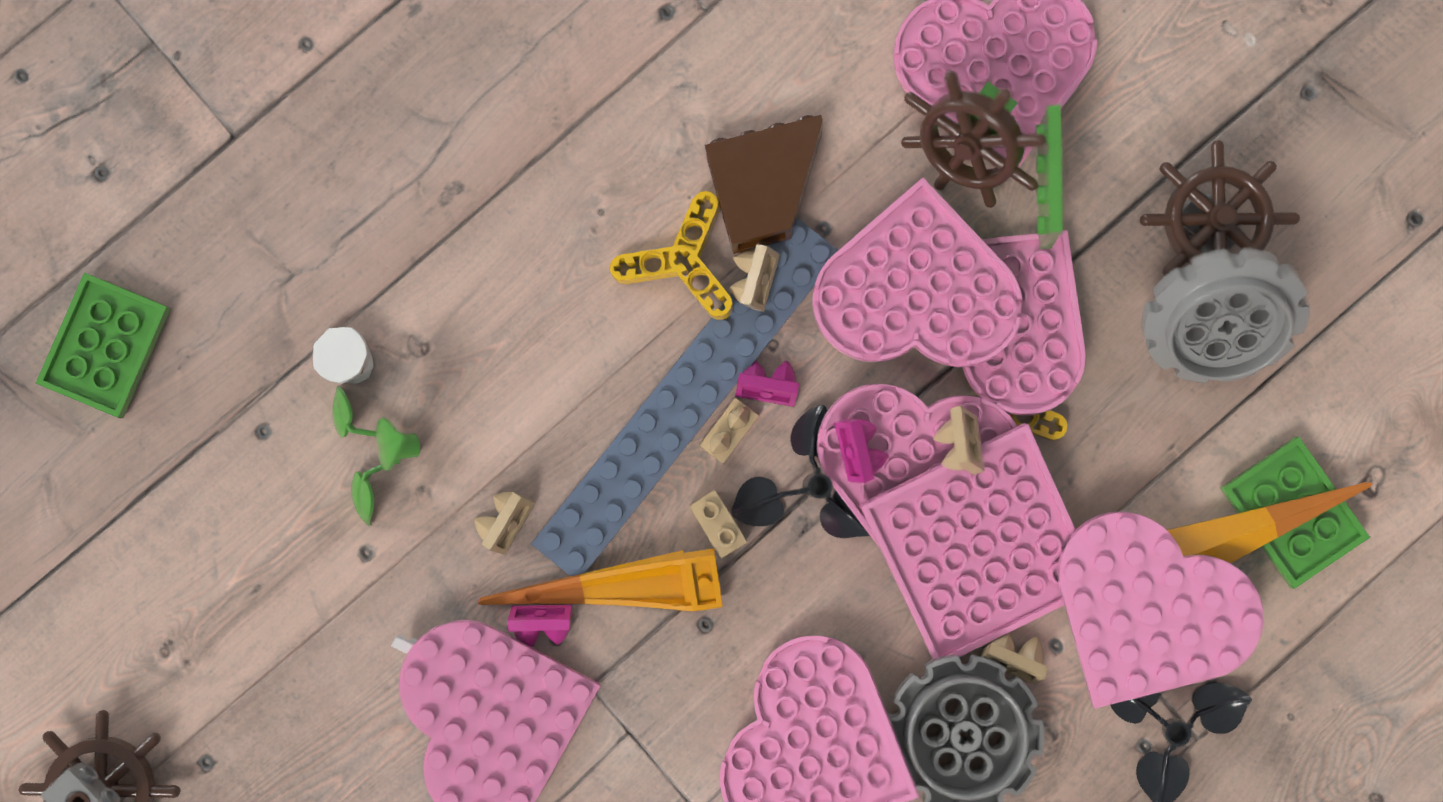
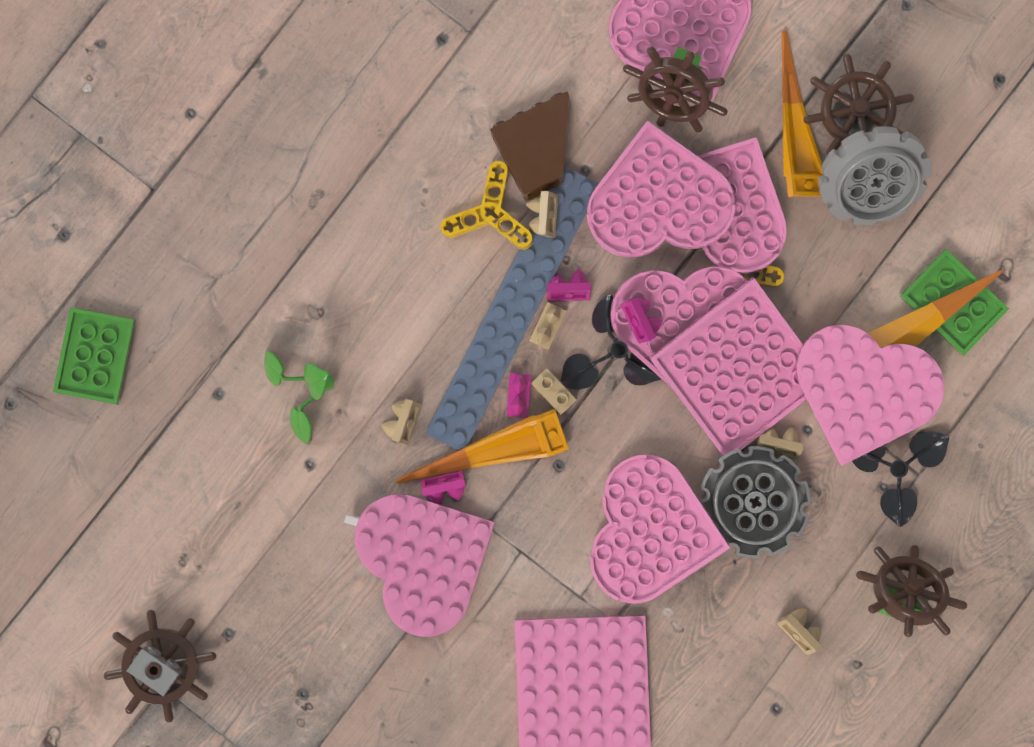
camera: 15 degrees left, 0 degrees up
(342, 356) = (265, 328): white hat -> none
(669, 518) = (518, 395): none -> dark pink tile
(965, 435) = (712, 294): tan tile -> none
(1049, 172) = (735, 113): bright green plate -> none
(1123, 270) = (800, 153): none -> light orange plate

